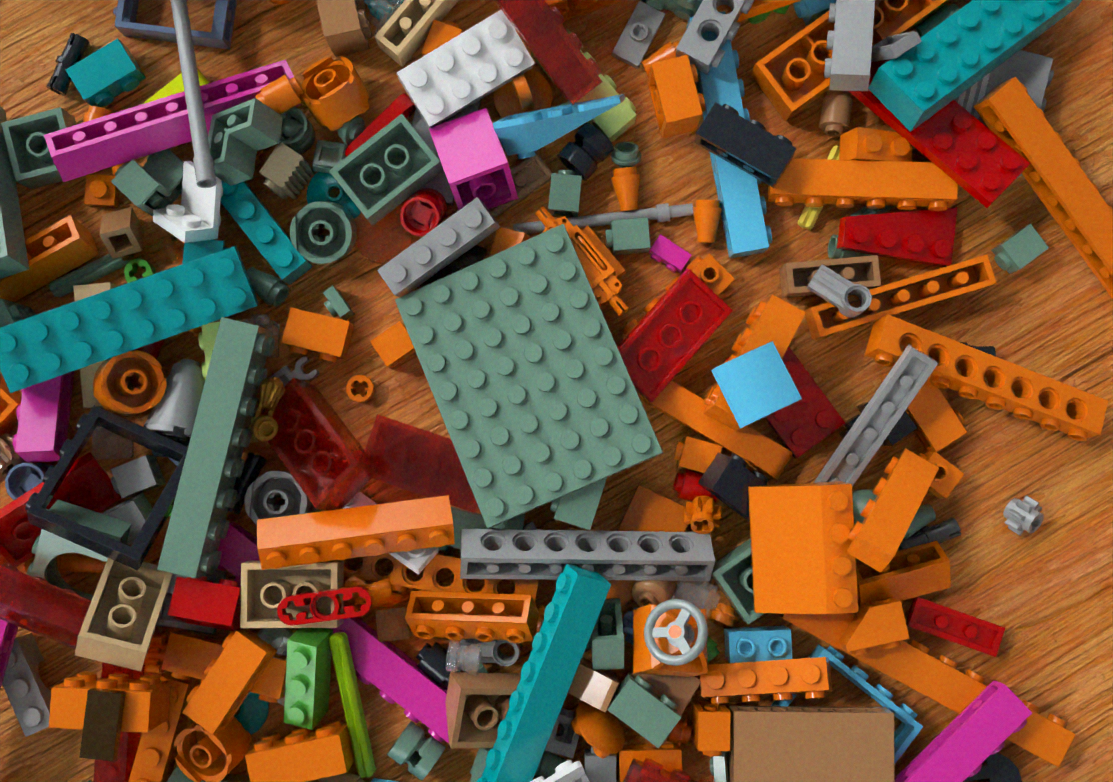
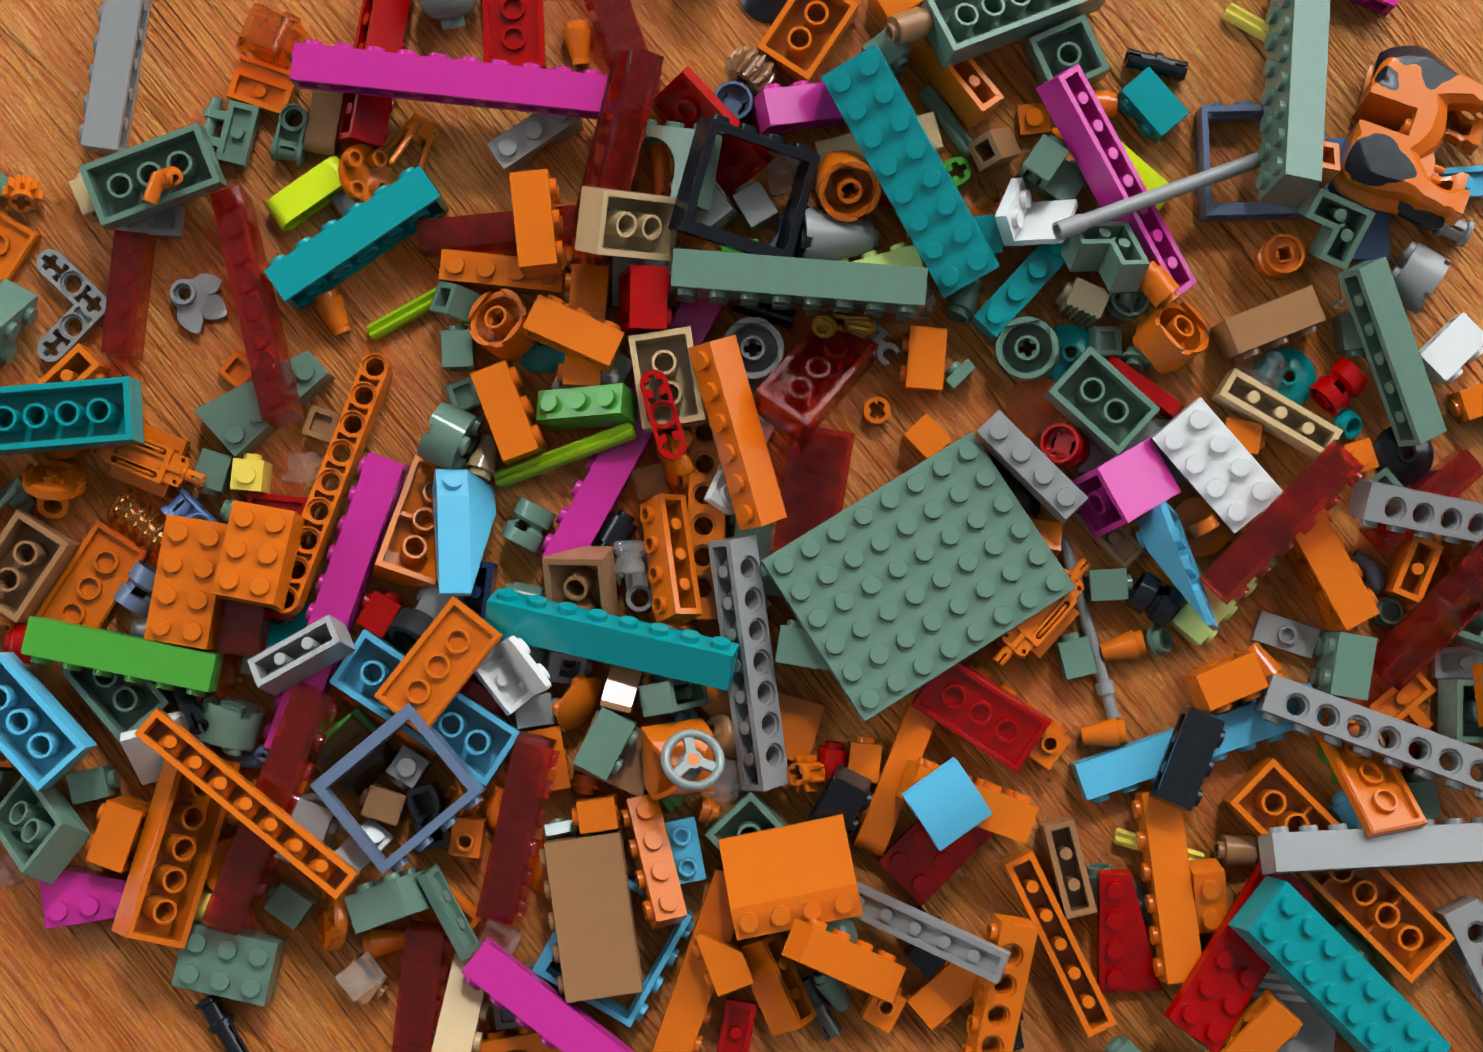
camera: 80 degrees right, 0 degrees up
(102, 724) = (521, 223): dark brown tile -> none
(669, 254) = (1063, 701): dark pink piece -> none
(836, 289) = (1056, 872): light grey piece -> none
(894, 46) = (1312, 894): light grey tile -> none

